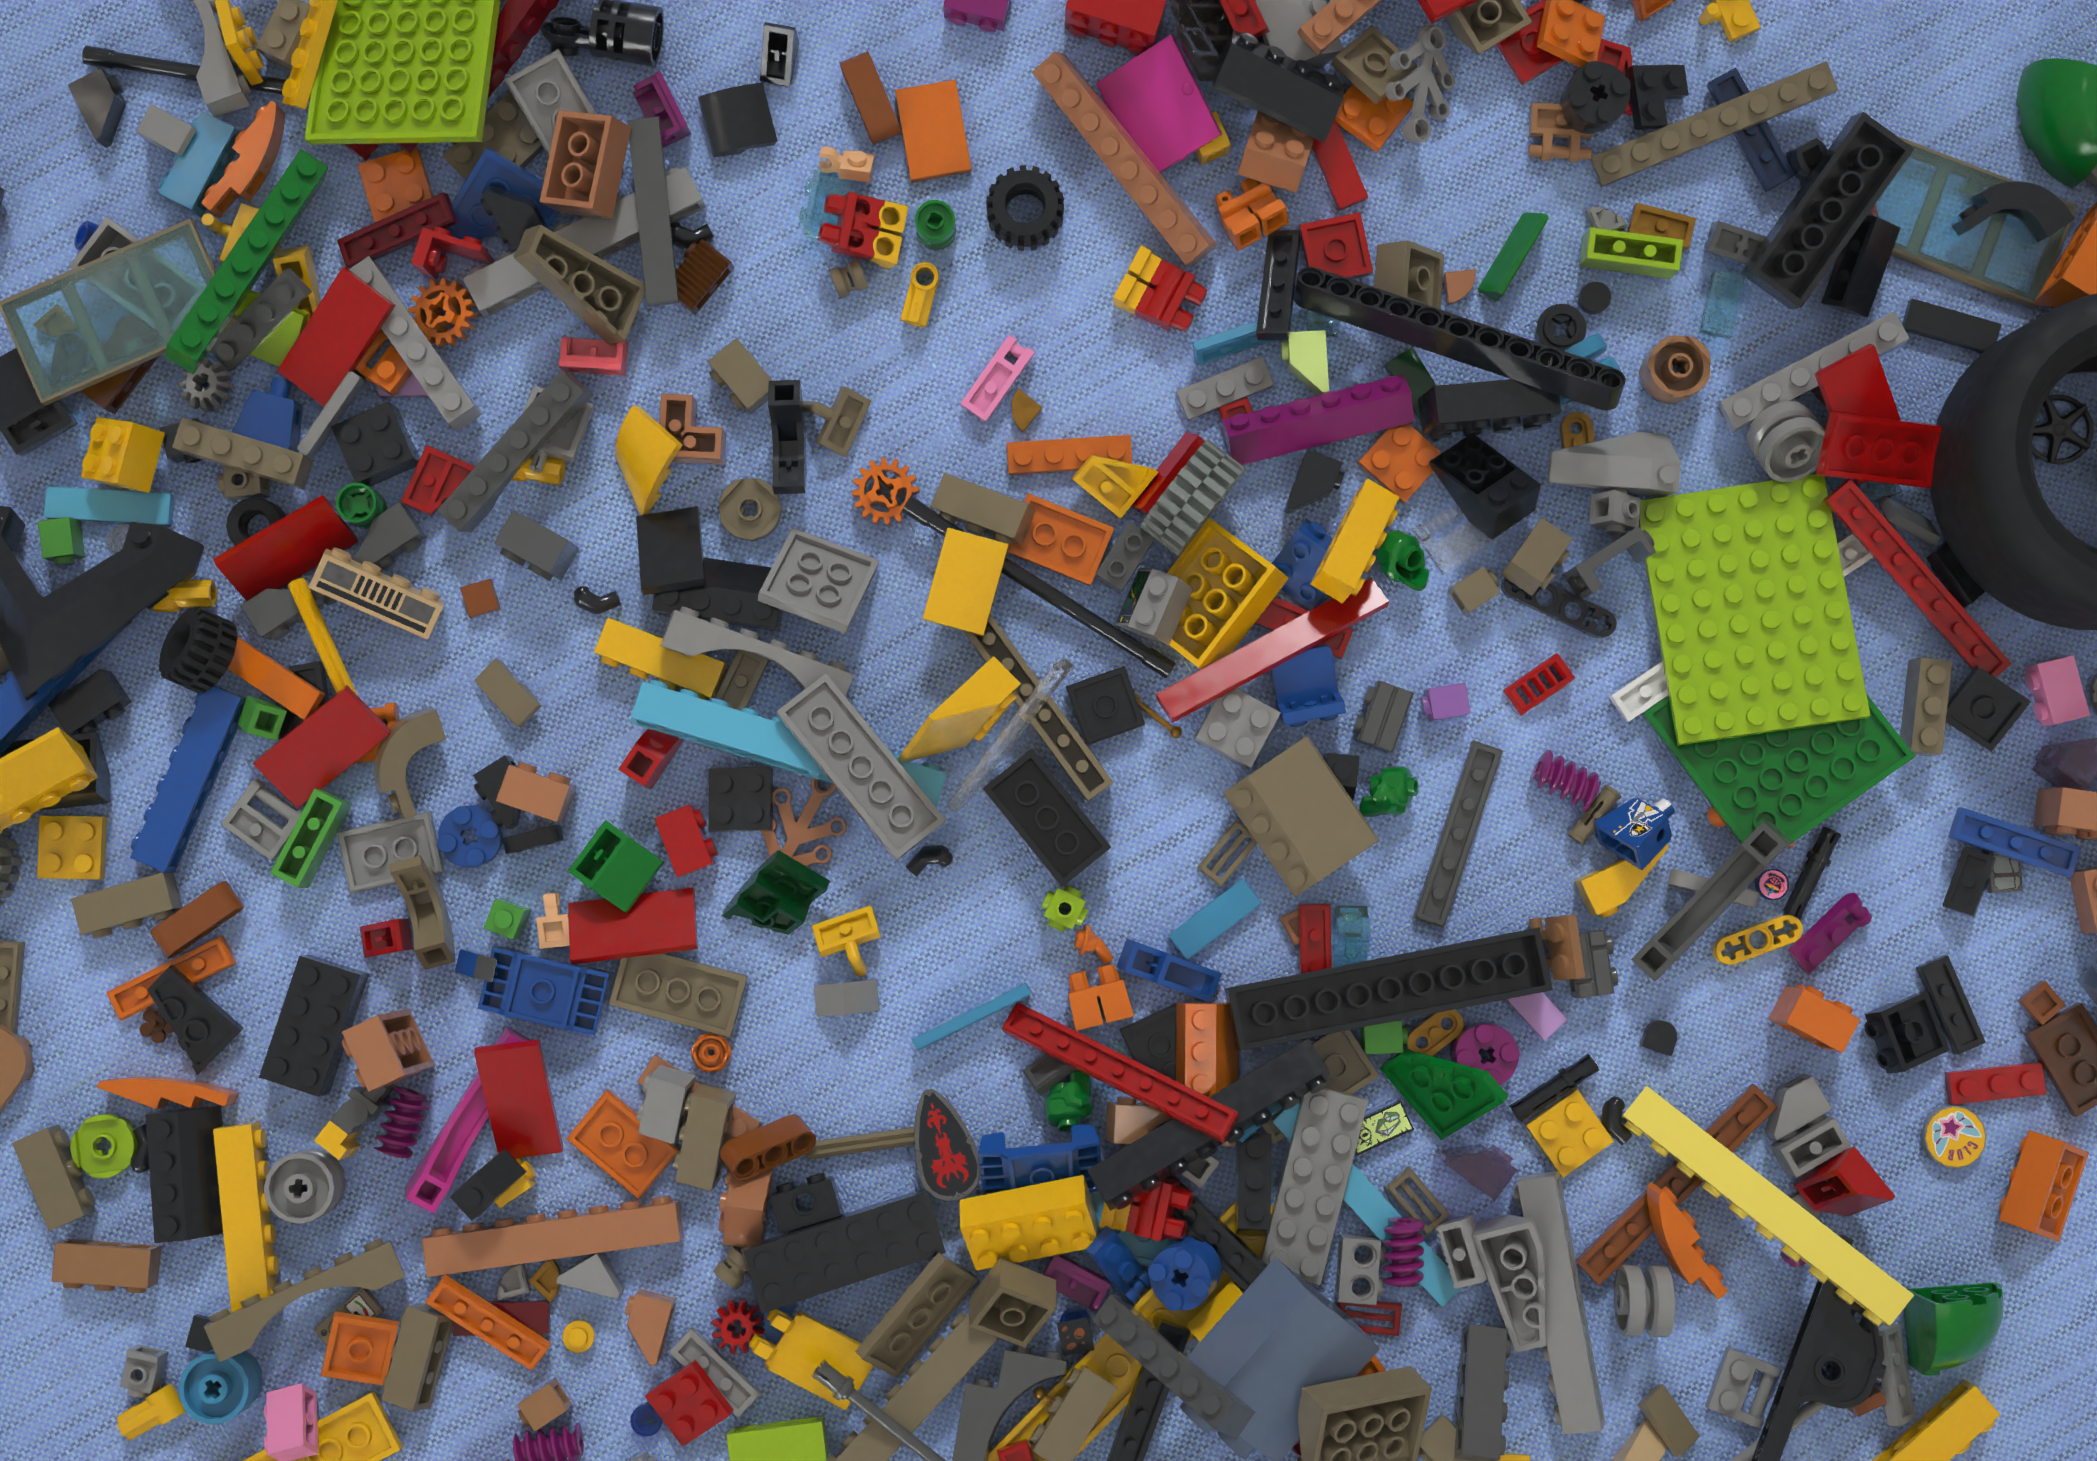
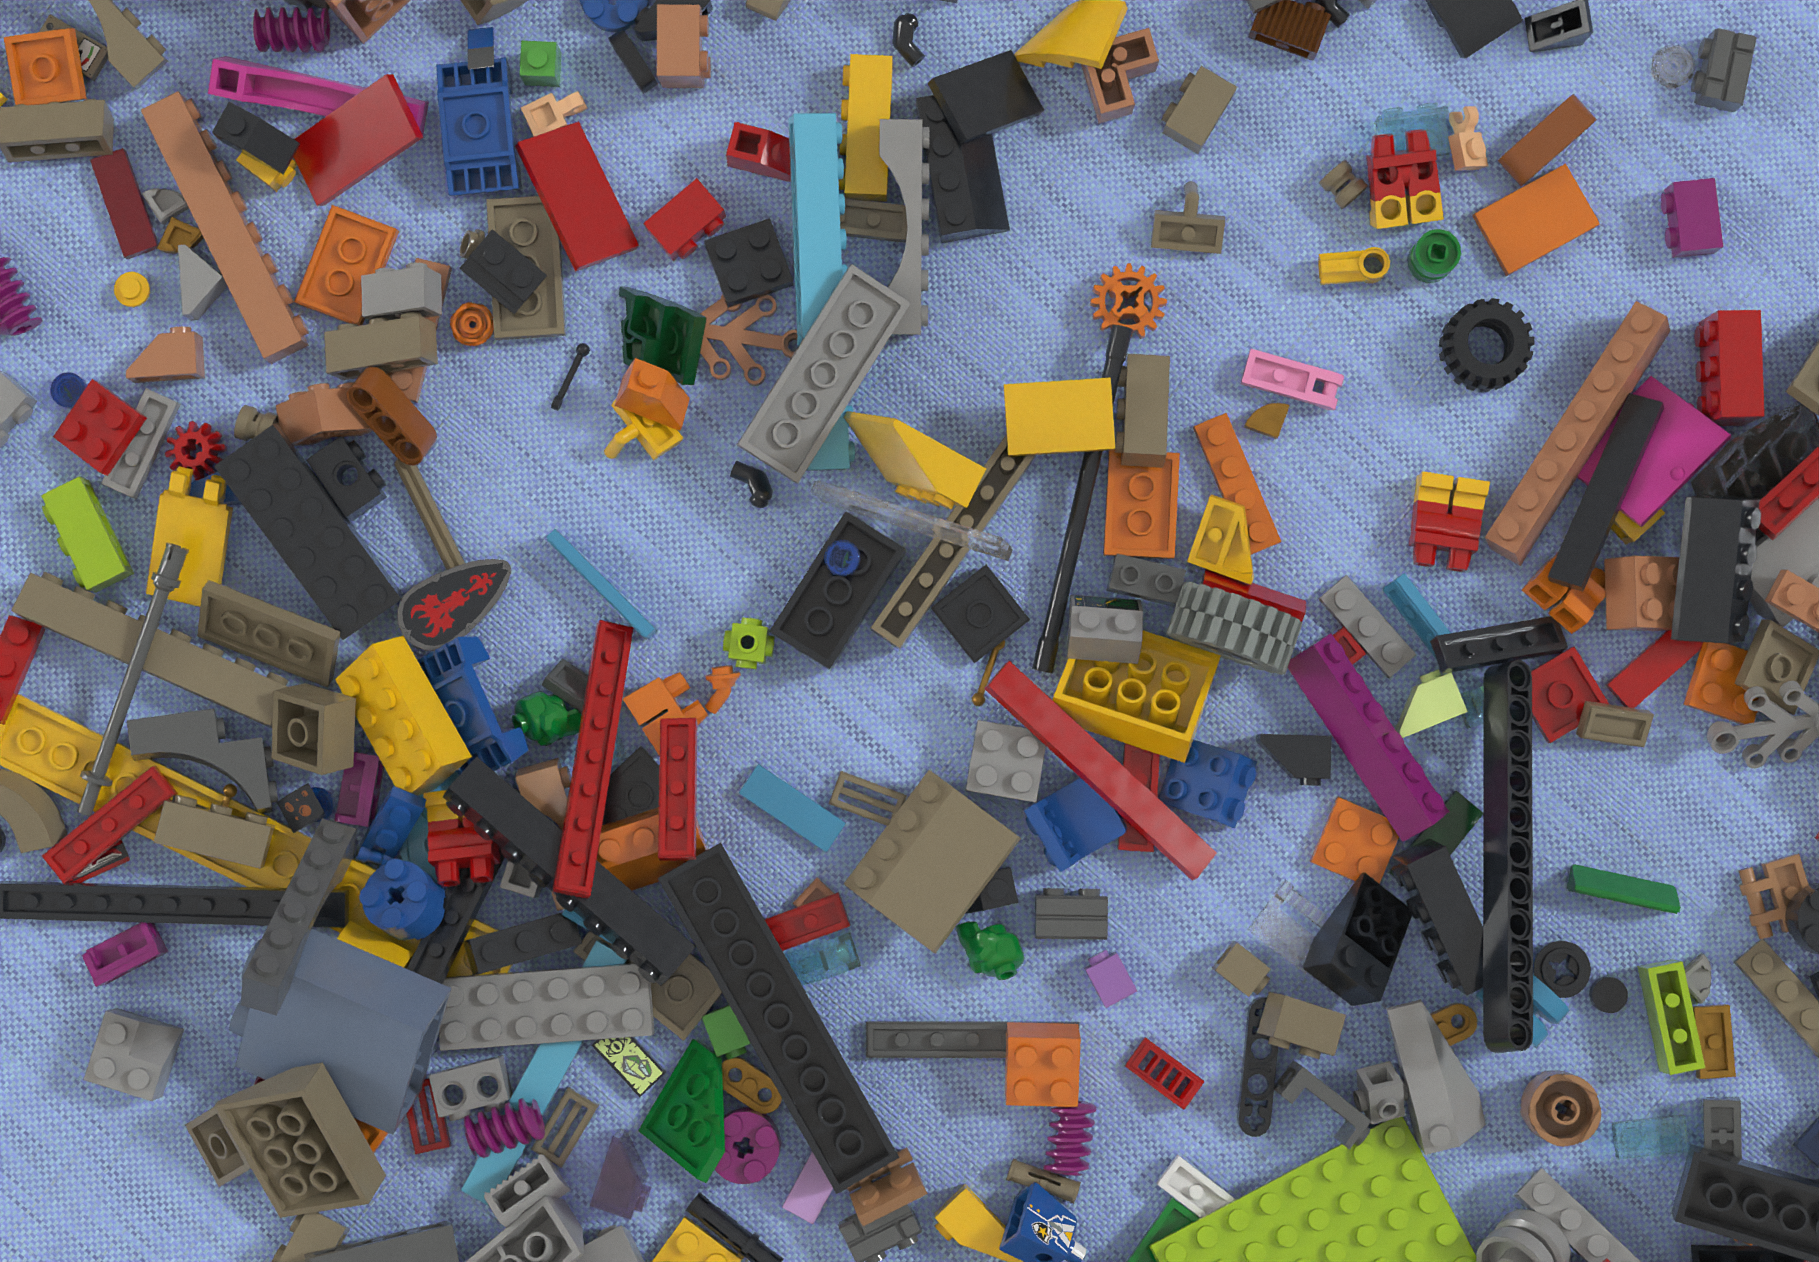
camera: 80 degrees right, 0 degrees up
(488, 1322) = (114, 190): orange tile -> none
(543, 1405) = (48, 278): medium nougat brick -> none
(615, 866) = (633, 156): green slope -> none
(644, 1028) = (470, 242): none -> dark tan plate
(677, 1010) = (503, 272): none -> black plate
(750, 491) = (1078, 158): dark tan plate -> none
(765, 966) = (582, 350): none -> black hinge
(788, 436) = (1152, 179): black arch -> none
(818, 580) = (1007, 263): light grey plate -> none
(826, 918) = (652, 394): none -> orange slope
(846, 997) = (577, 447): light grey slope -> none
(1022, 804) = (842, 558): none -> clear blue tile
(1168, 970) = (720, 777): blue slope -> none
(1170, 1009) = (677, 789): none -> red tile
(1182, 153) = (1606, 492): none -> black tile
(1355, 541) = (1248, 820): yellow brick -> none
(1375, 214) = (1614, 724): none -> dark tan tile
(1403, 560) = (1247, 880): green head -> none
(1410, 272) = (1563, 784): dark tan slope -> none
(1458, 284) = (1570, 841): nougat tile -> none
(1499, 782) = (1042, 1064): none -> orange brick

